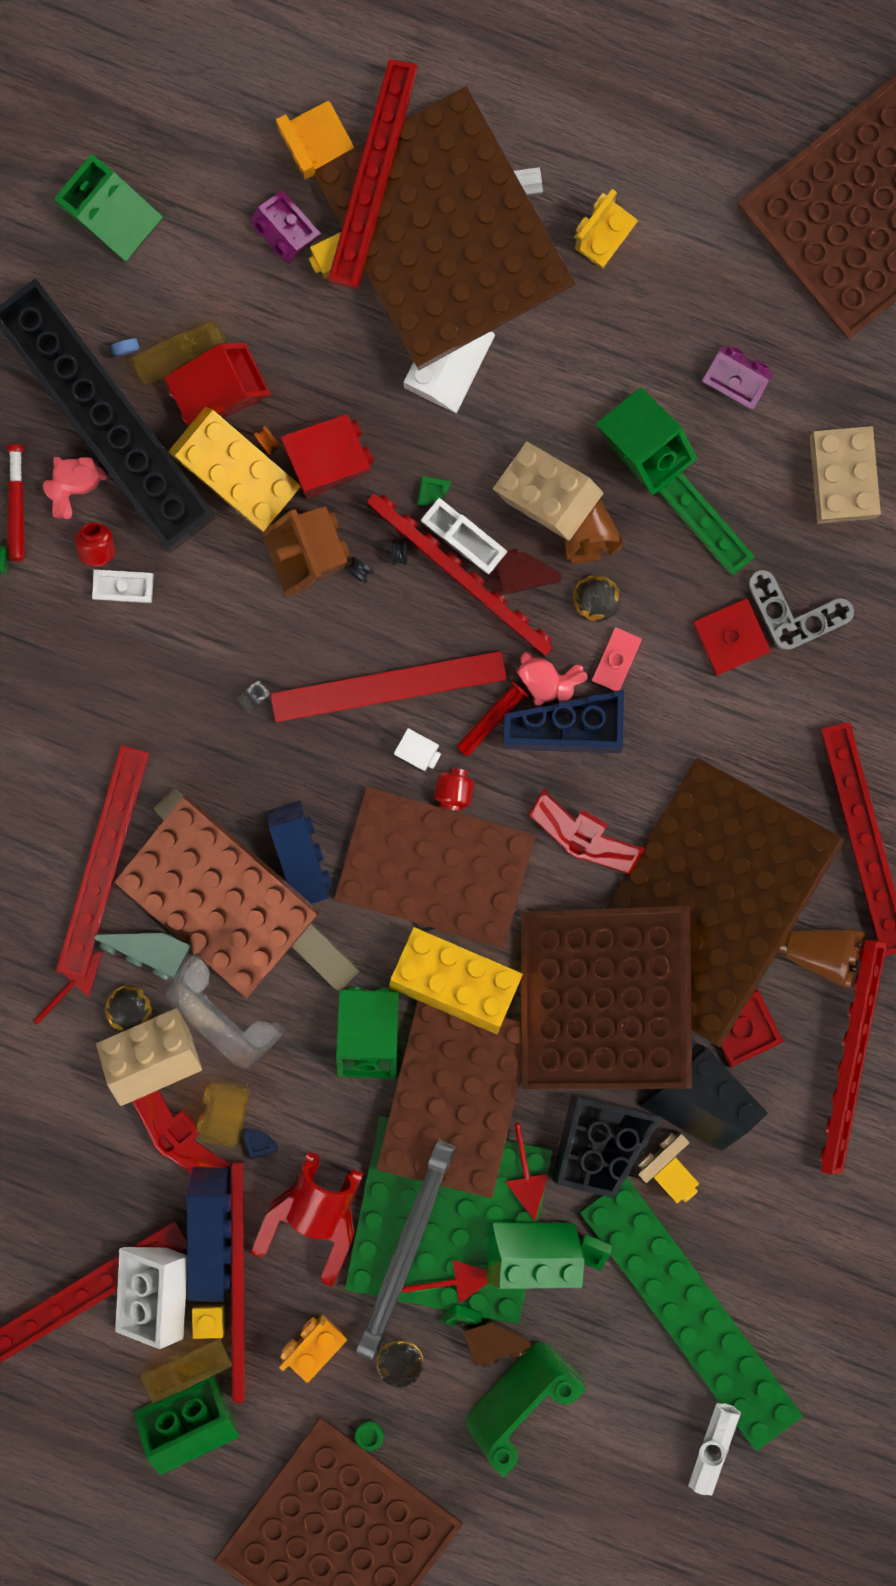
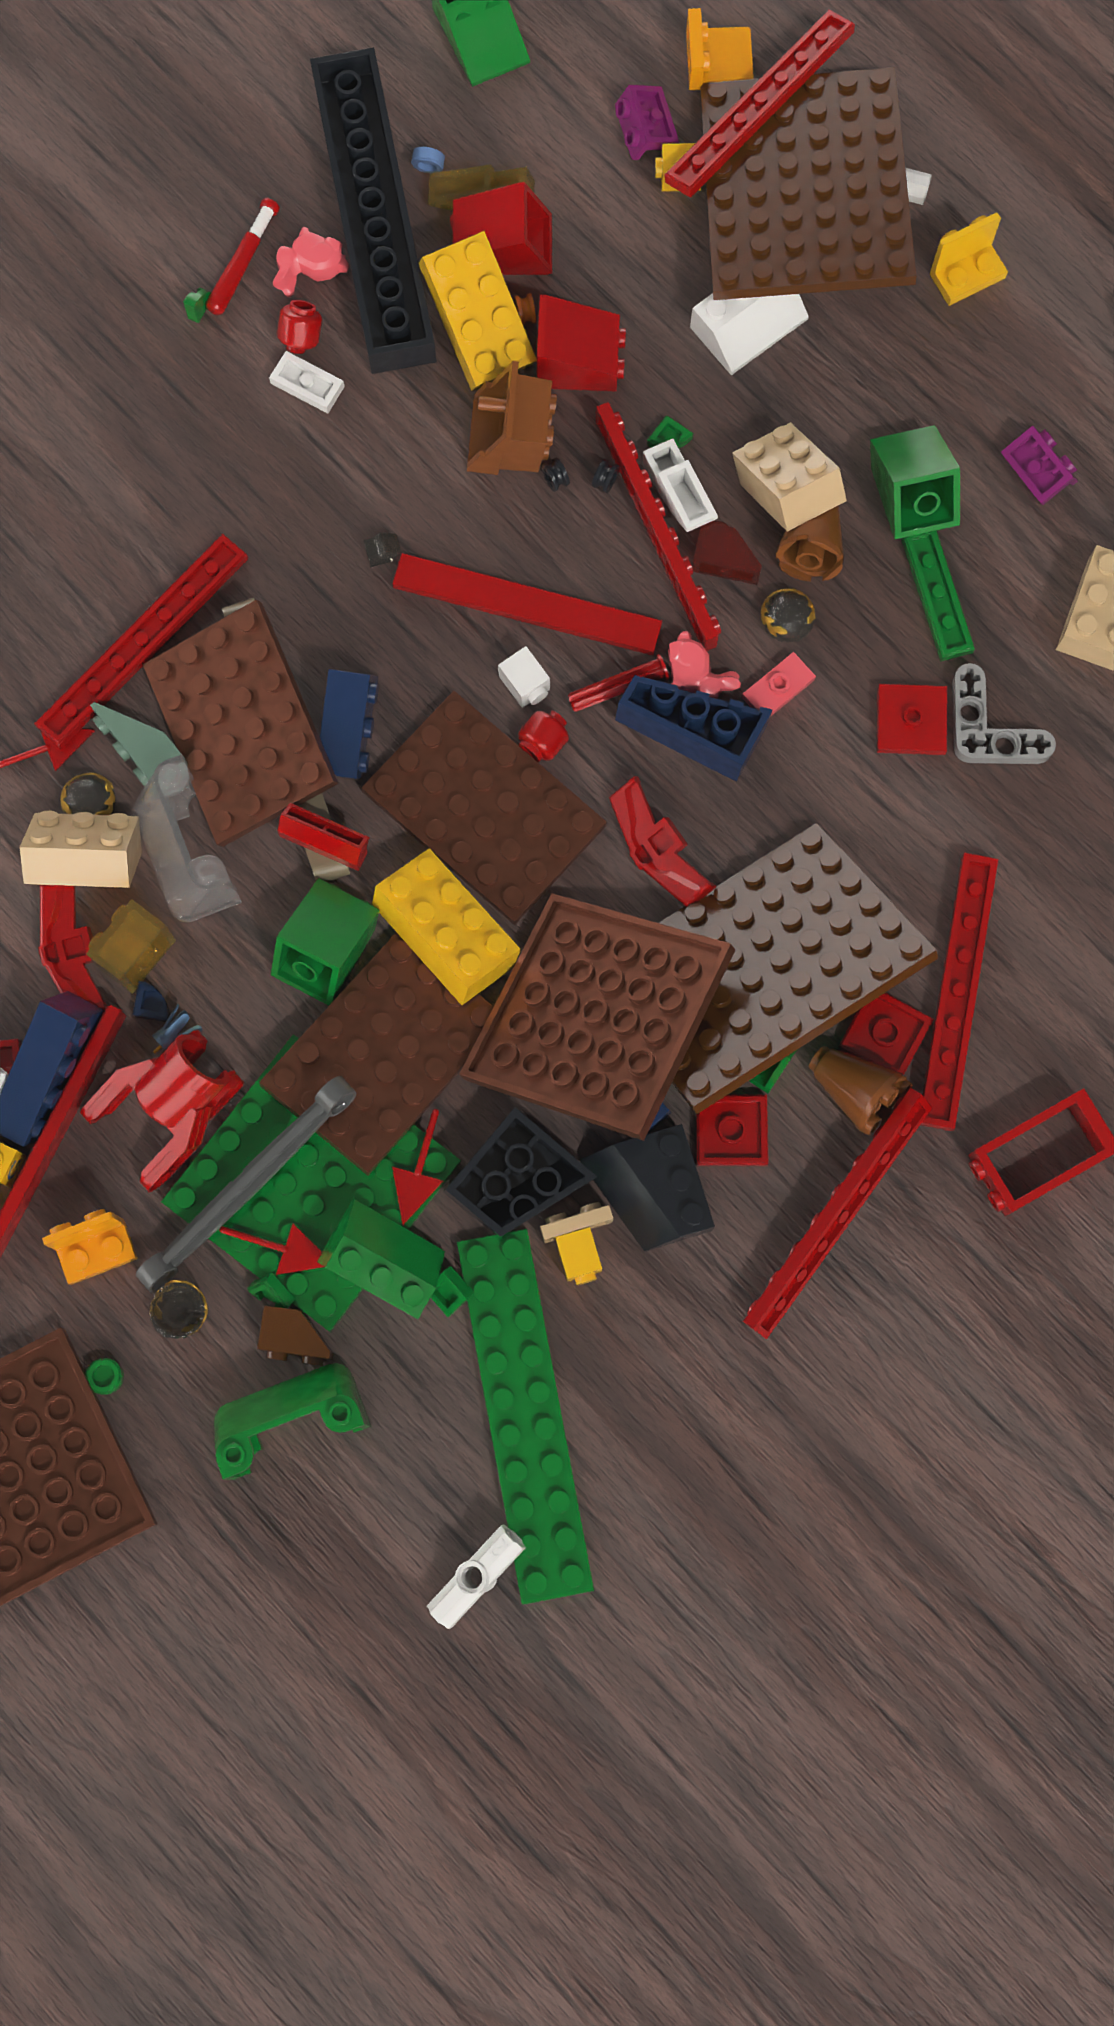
camera: 25 degrees right, 10 degrees down
(289, 1158) = (169, 1032): none -> flat silver piece
(329, 963) = (323, 836): none -> red piece
(832, 901) = (886, 1033): none -> red tile

